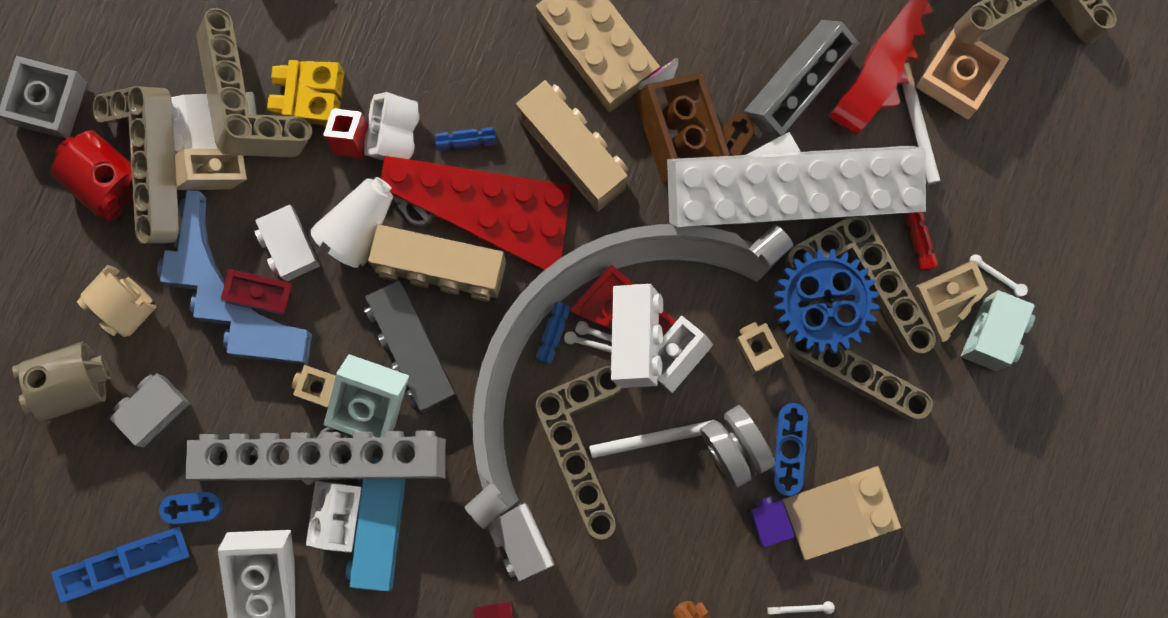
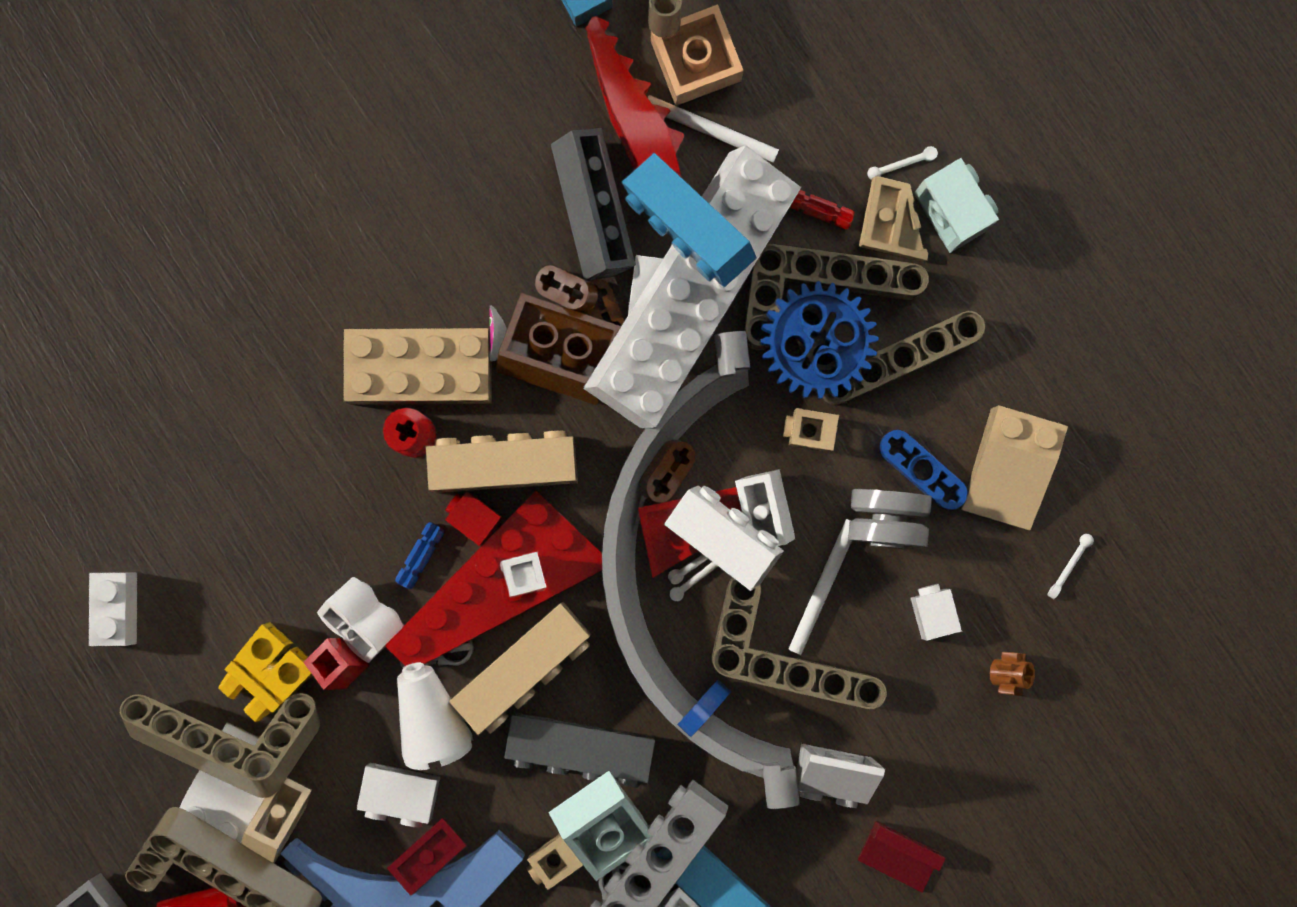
camera: 60 degrees left, 5 degrees up
(502, 410) = (704, 708): none -> blue beam
(504, 213) = (523, 574): none -> white panel
(519, 154) = (472, 517): none -> red brick
(546, 62) = (412, 419): none -> red piece
(553, 332) = (661, 606): blue axle -> none
(653, 273) = (667, 471): none -> reddish brown beam
(694, 532) = (935, 612): none -> white brick
(733, 101) = (563, 294): none -> reddish brown beam
(770, 521) = (976, 536): dark purple brick -> none
(841, 143) = (688, 220): none -> dark azure brick

